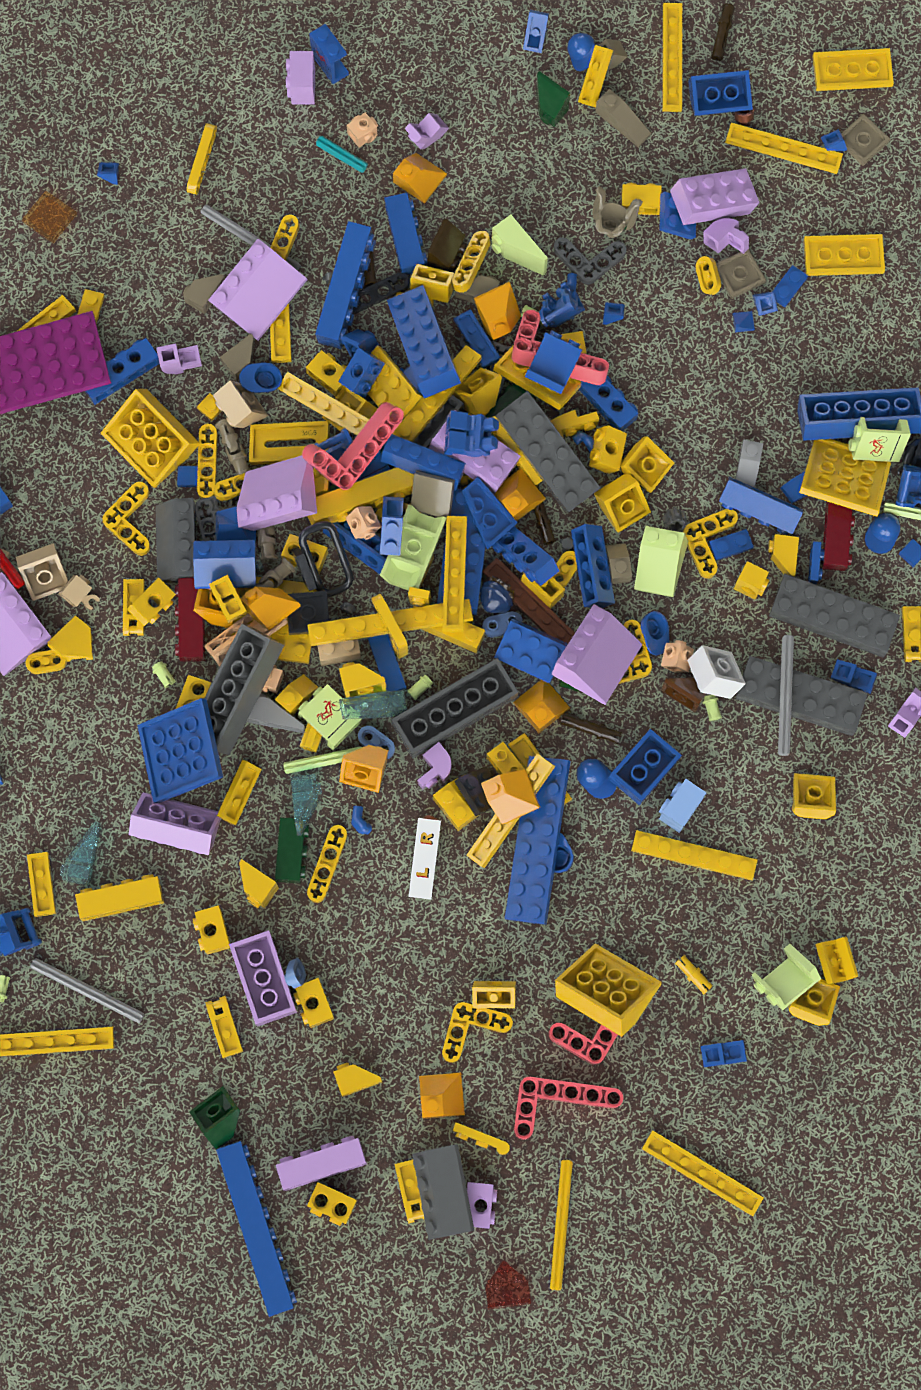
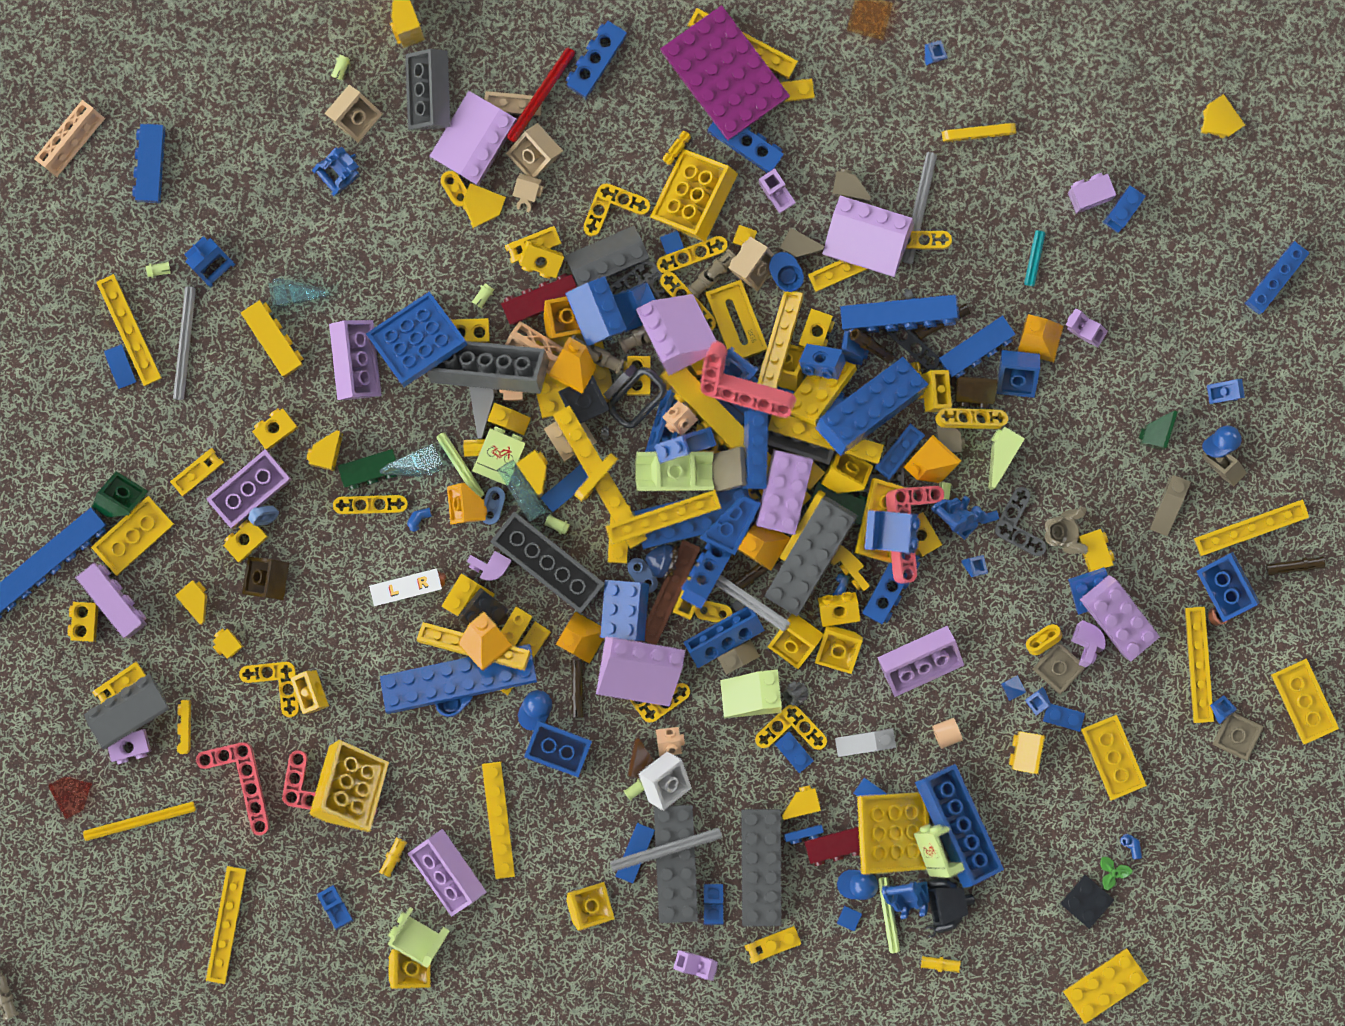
camera: 65 degrees right, 10 degrees up
(41, 884) = (259, 266): yellow plate -> none
(83, 1065) = (120, 366): none -> blue slope
(97, 437) = (677, 147): none -> yellow axle
(227, 599) = (563, 327): yellow brick -> none
(239, 792) = (402, 404): yellow plate -> none
(263, 1119) = (132, 536): none -> yellow plate
(353, 327) = (867, 343): none -> dark brown pin
(360, 997) = (265, 578): none -> dark brown slope
(362, 129) = (1057, 269): light nougat brick -> none
(411, 1062) = (226, 643): none -> yellow brick
(419, 597) = (631, 494): yellow plate -> none
(441, 1095) = (208, 679): light orange slope -> none
(446, 202) = (1018, 373): none -> blue slope
(470, 434) = (794, 490): blue hips -> none
(572, 524) = (751, 603): none -> light grey axle
(595, 76) = (1199, 464): yellow plate -> none
(655, 631) = (685, 714): blue cap -> none
(682, 805) = (534, 793): light blue brick -> none
(686, 393) = (921, 661): none -> lavender slope
(729, 925) = (447, 872): none -> lavender slope
(752, 581) = (763, 783): yellow brick -> none
(760, 505) = (838, 766): brick -> none
(765, 394) = (947, 733): none -> light nougat piece
(769, 728) = (639, 842): none -> blue tile
(812, 326) = (1027, 752): none -> yellow slope
(836, 960) = (450, 976): yellow bracket -> none

